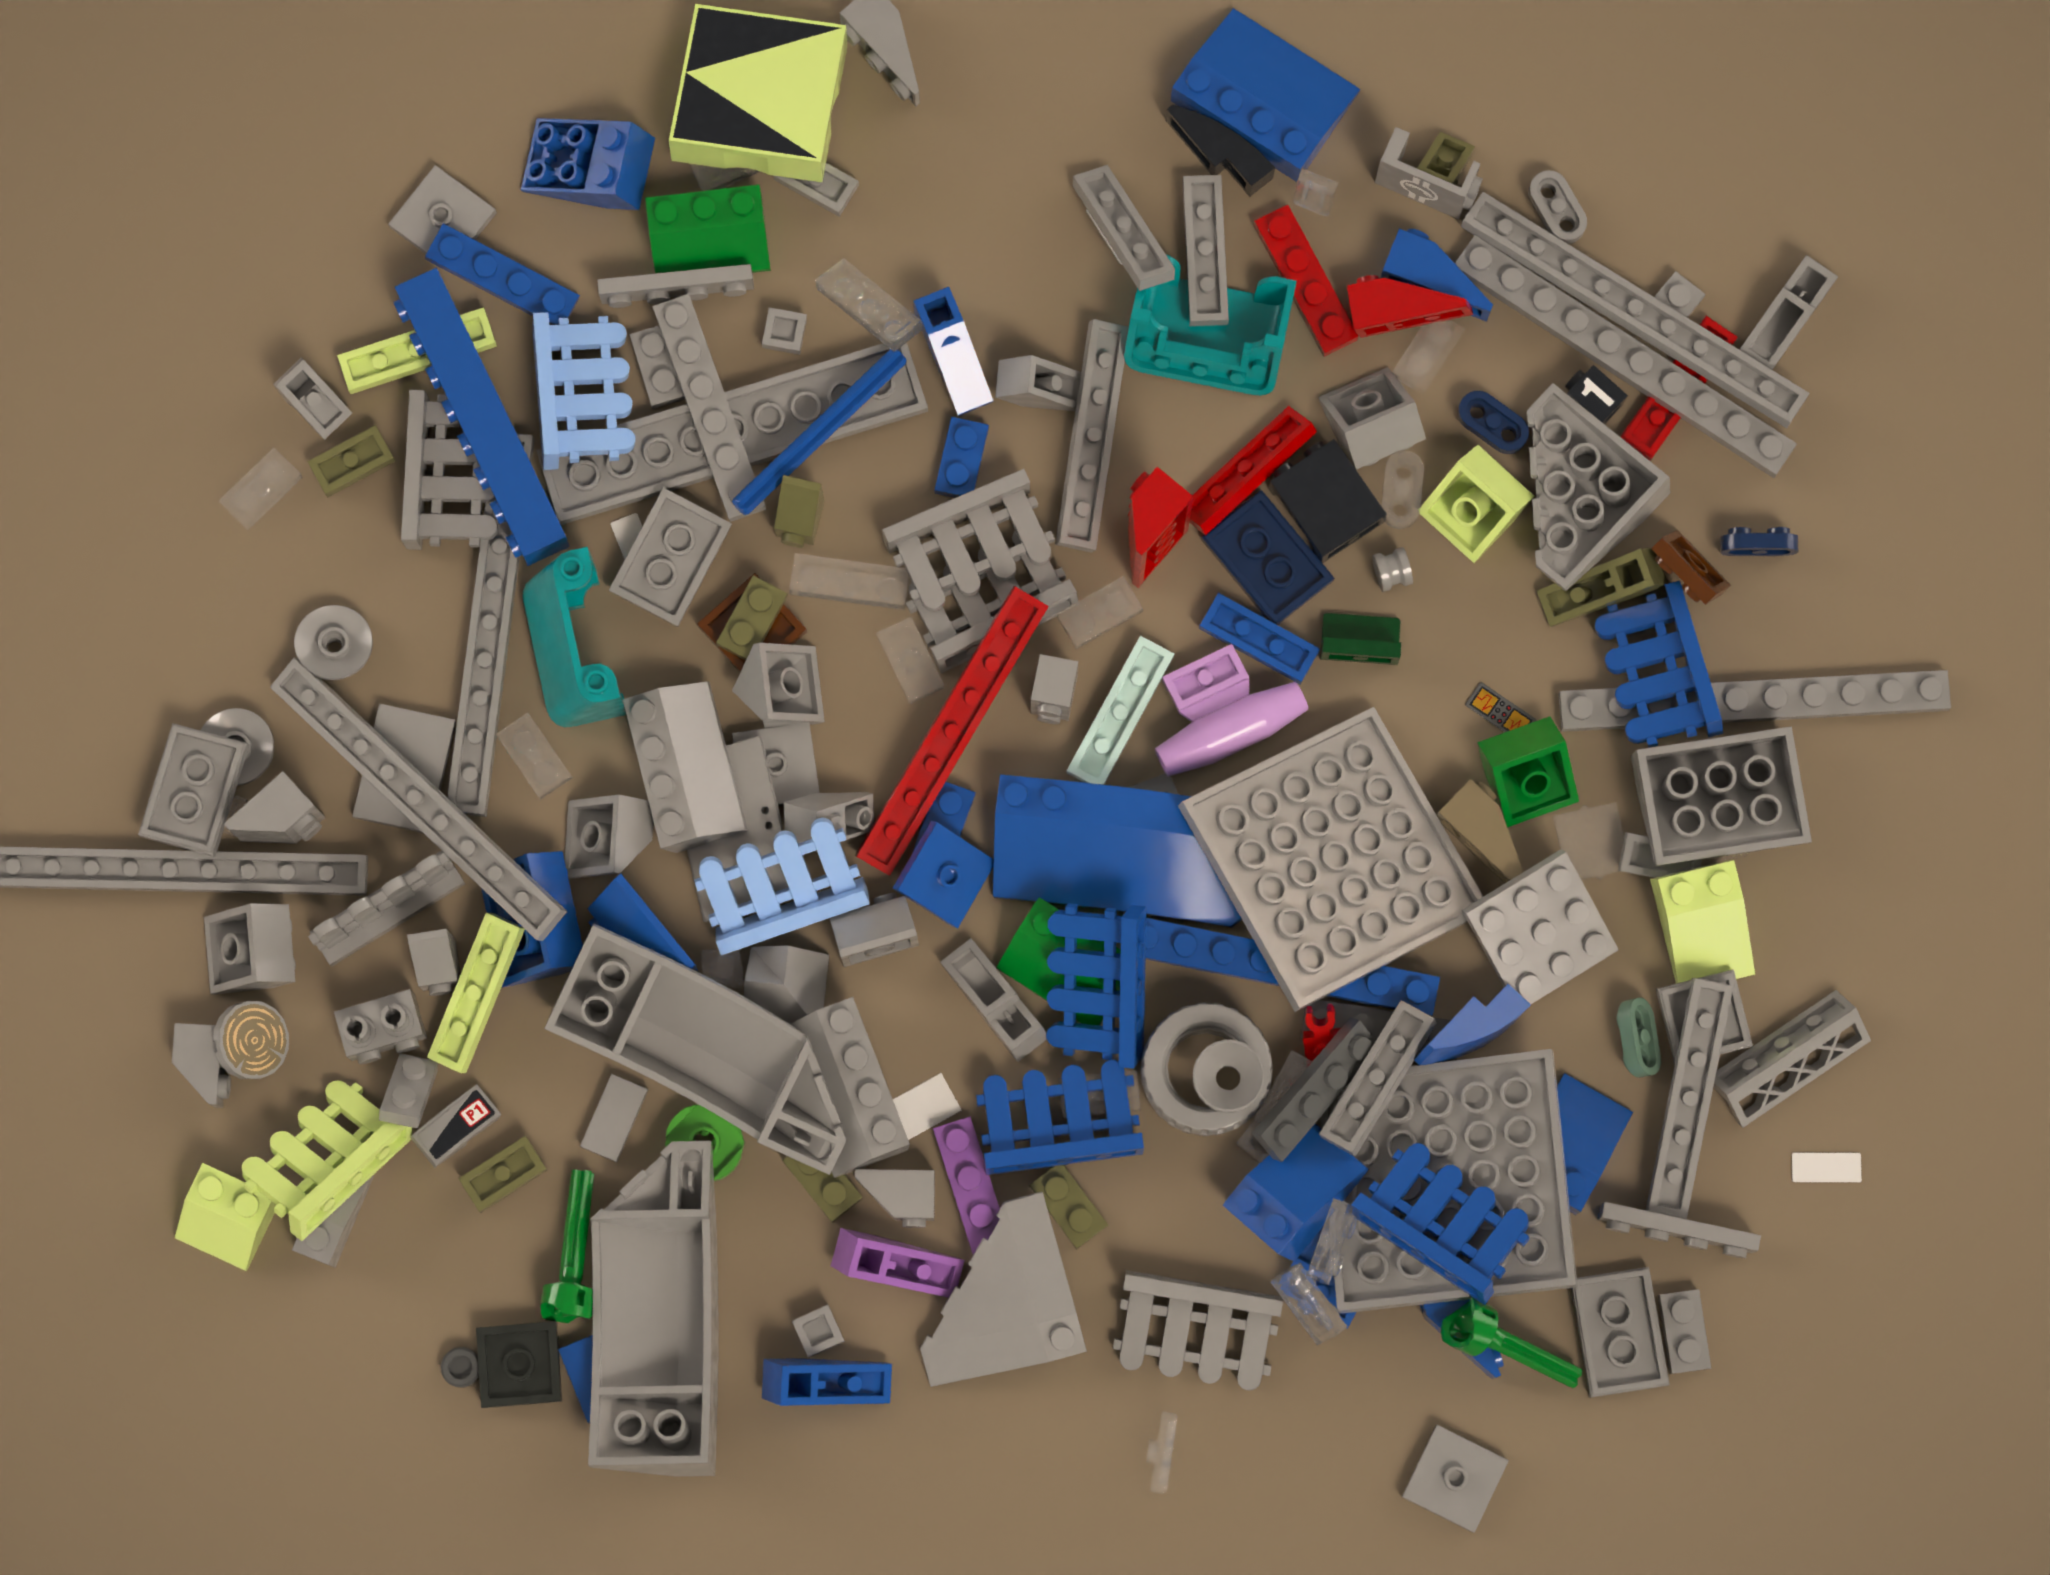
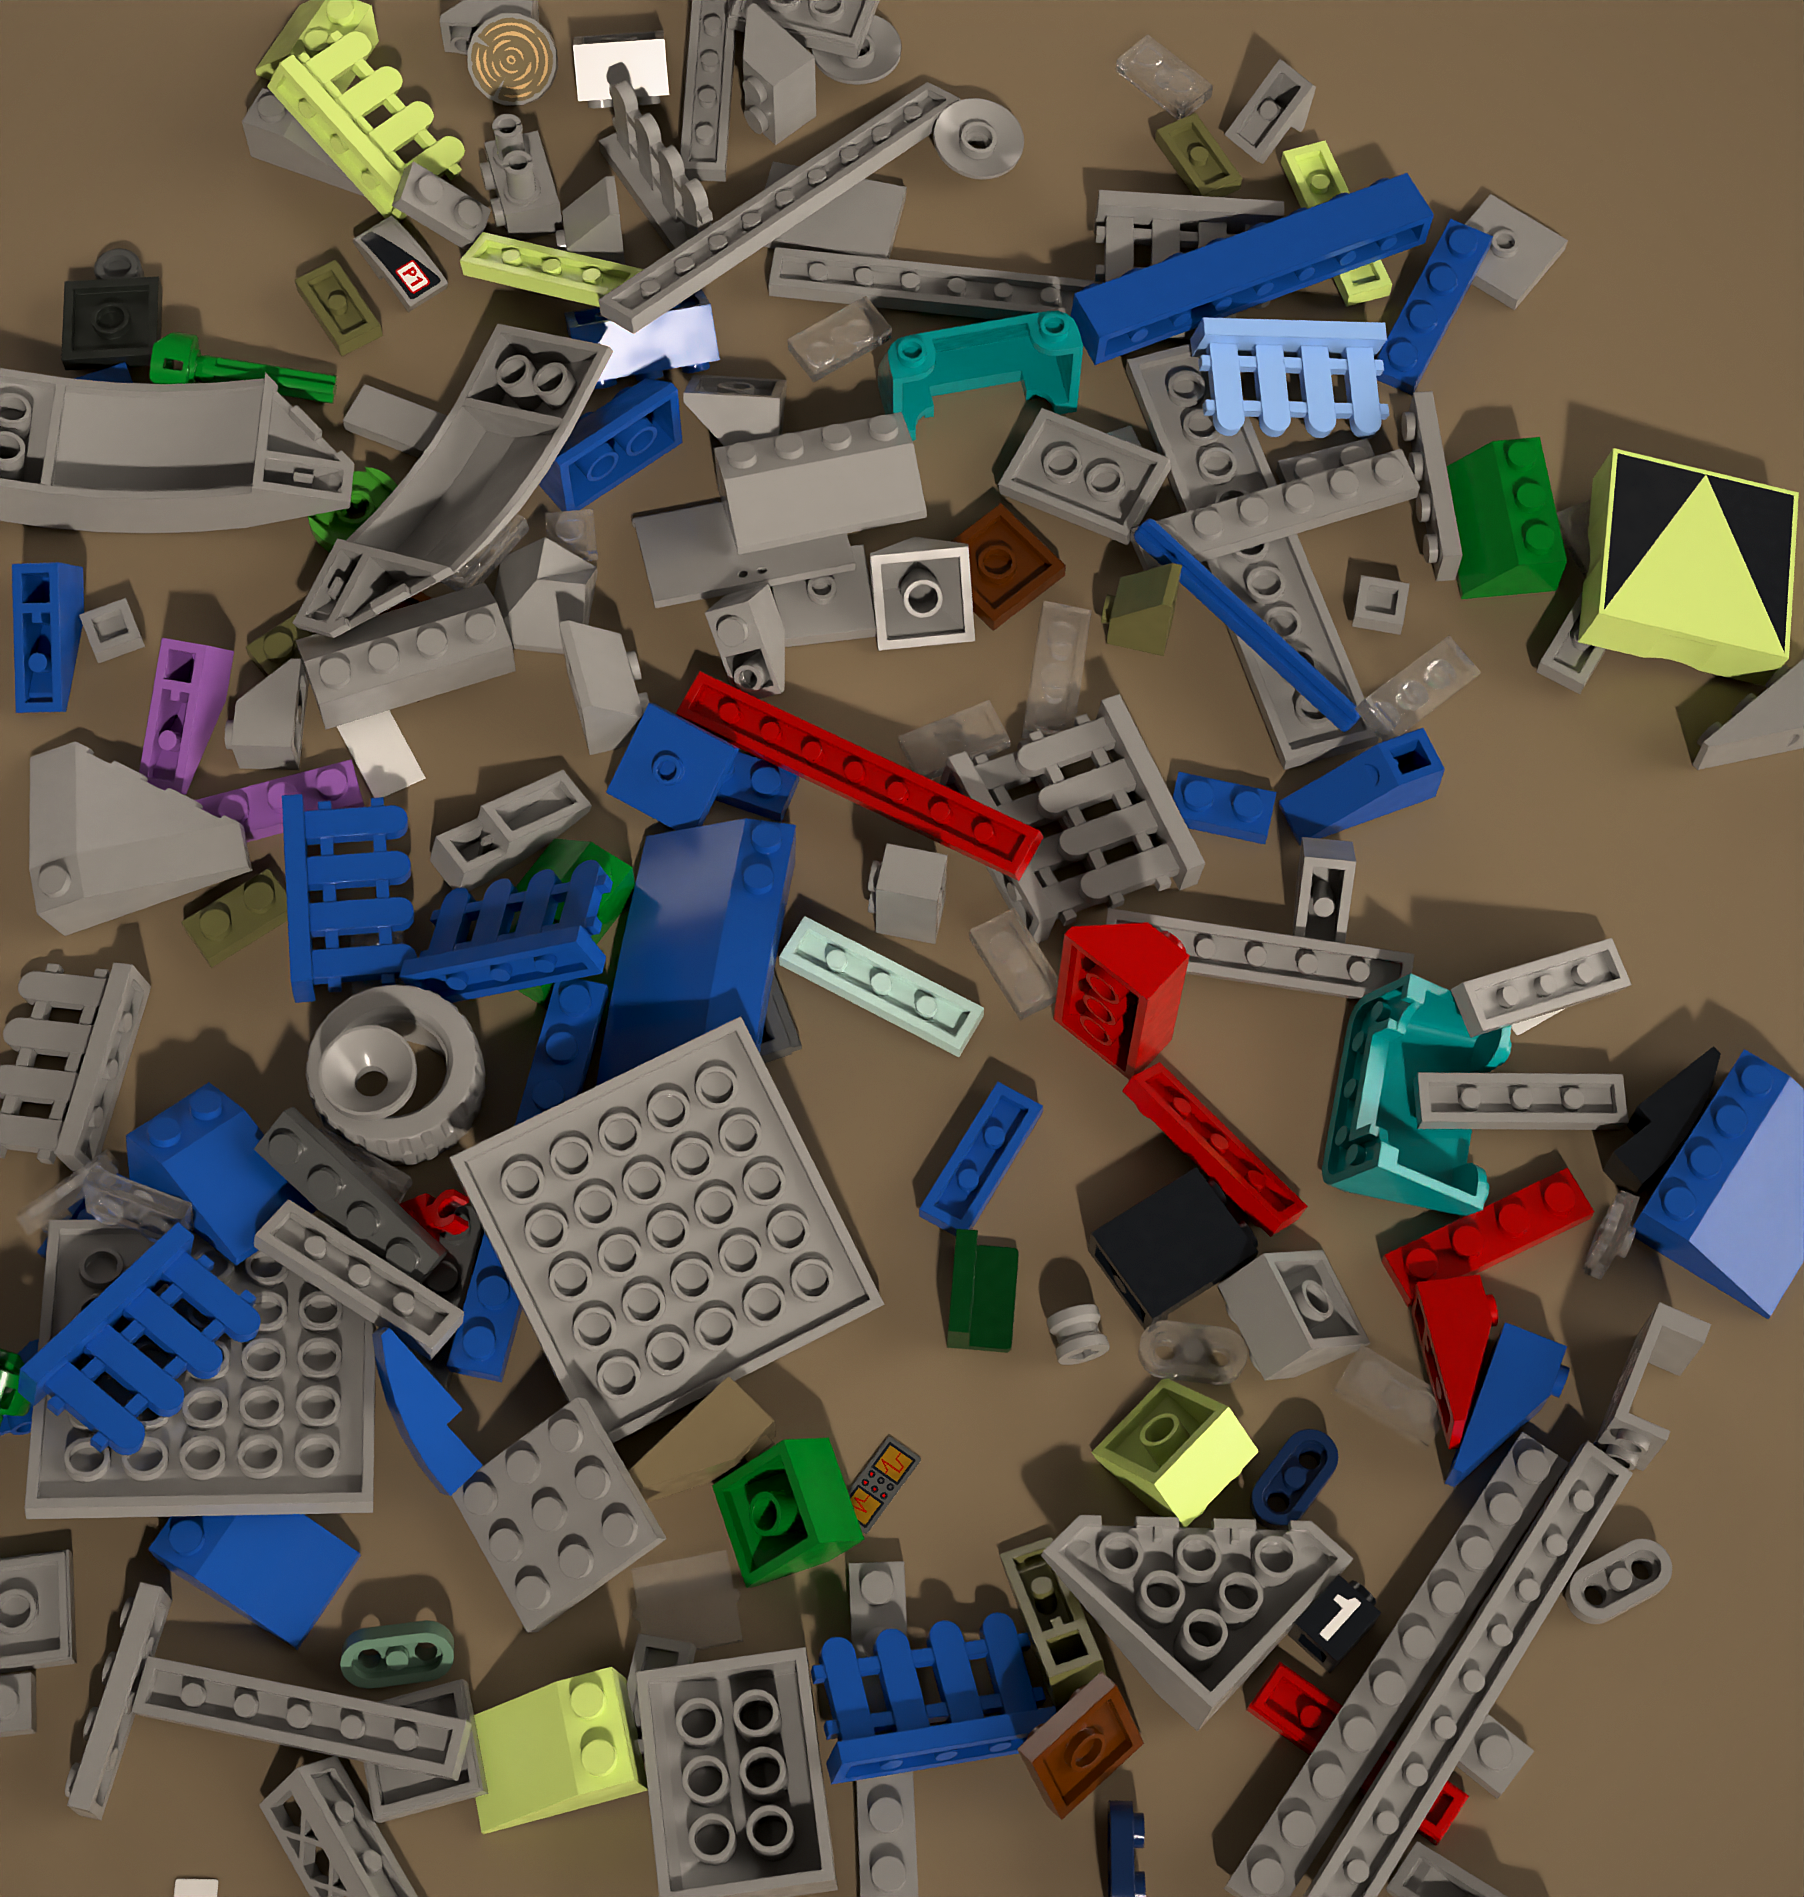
camera: 90 degrees right, 15 degrees down
(589, 162) = (1584, 396): blue slope -> none
(752, 617) = (1008, 557): olive plate -> none
(772, 917) = (625, 574): light blue fence -> none
(1222, 713) = (878, 1110): lavender plate -> none
(1267, 558) = (1091, 1176): dark blue tile -> none
(1447, 158) = (1671, 1407): olive slope -> none

